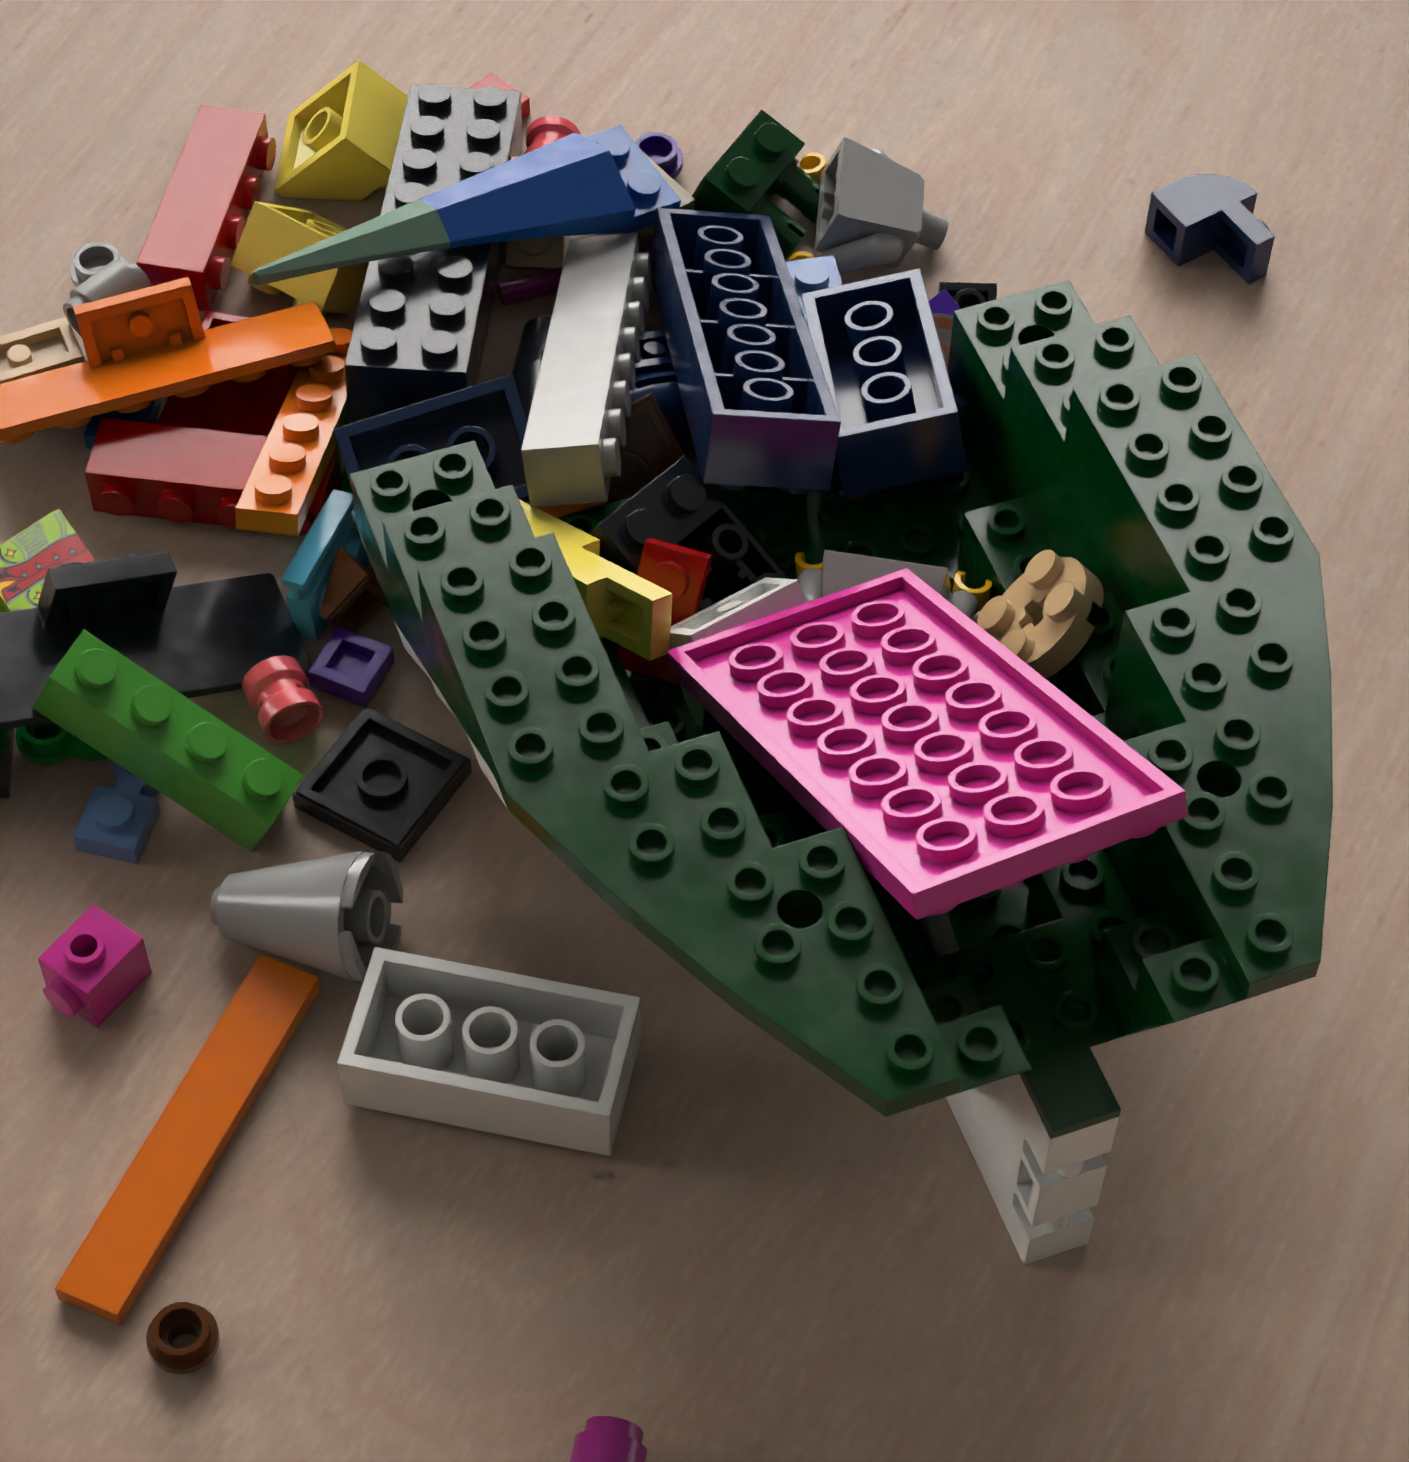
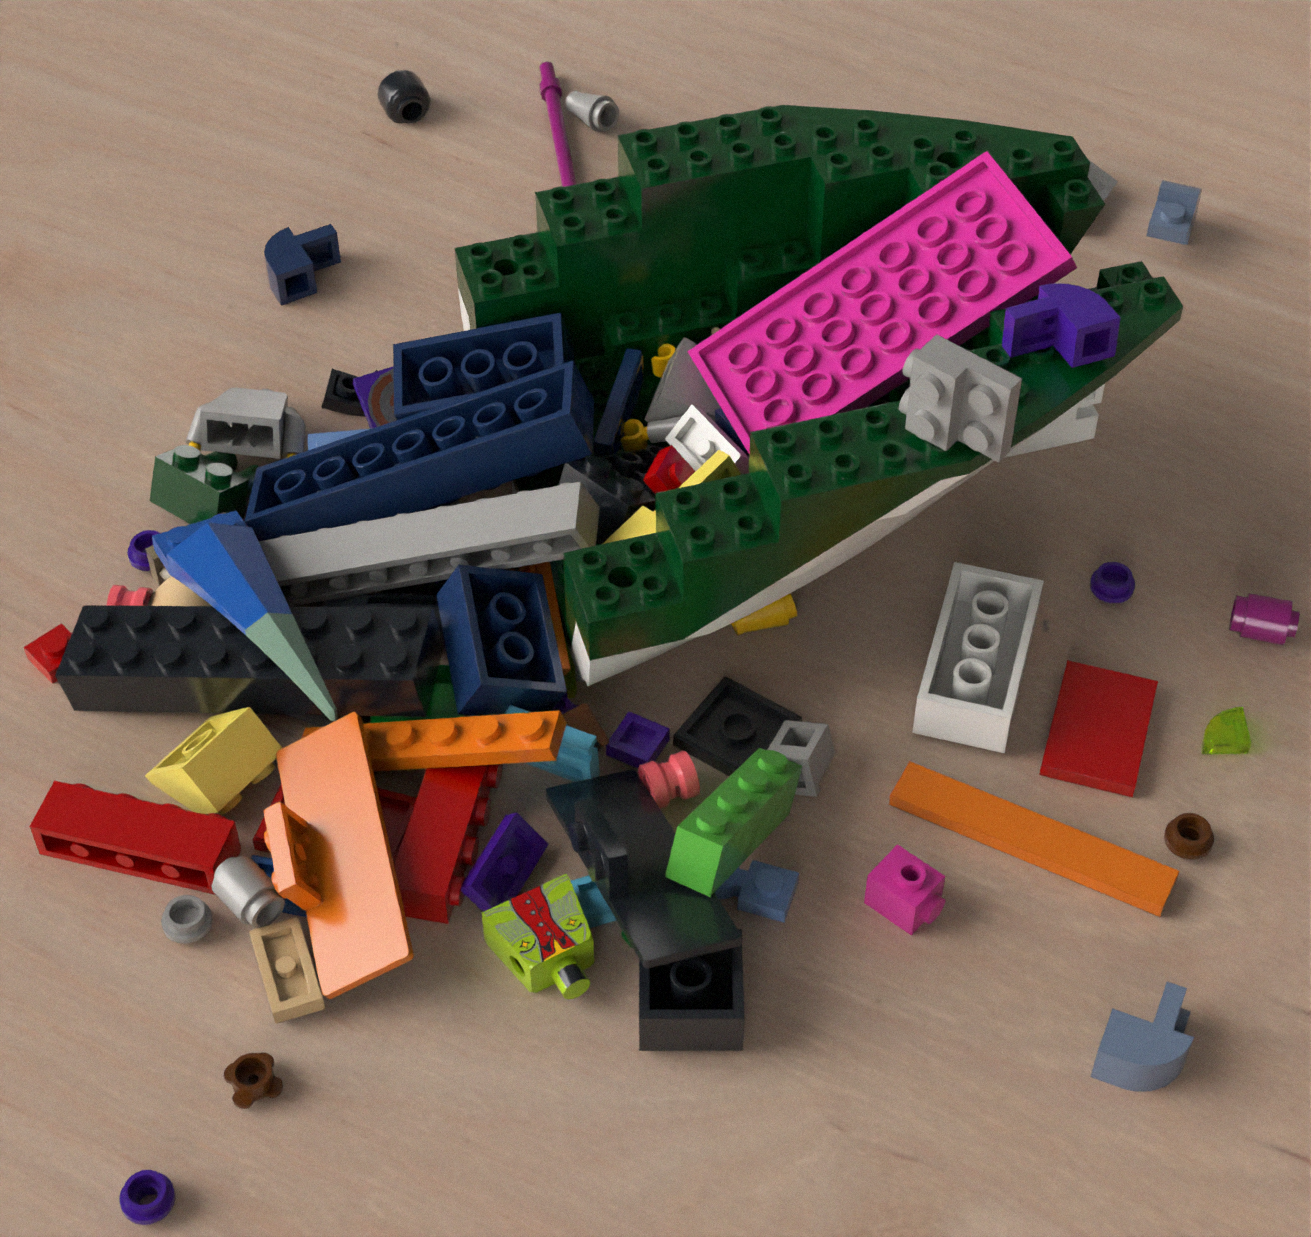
camera: 85 degrees left, 5 degrees down
(131, 527) = (504, 863): none -> dark purple plate
(314, 910) = (868, 749): light grey cone -> none
(315, 829) = (808, 746): none -> light grey brick
(342, 138) = (80, 741): light yellow slope -> none
(383, 1410) = (1227, 733): none -> clear neon green tile
(391, 1231) = (1099, 728): none -> red tile
(543, 721) = (959, 399): none -> light grey plate
(679, 1262) = (1112, 582): none -> dark purple plate
(769, 896) = (1063, 317): none -> dark purple brick
(793, 529) = (620, 404): none -> dark blue tile
(1045, 612) = (720, 278): tan plate -> none

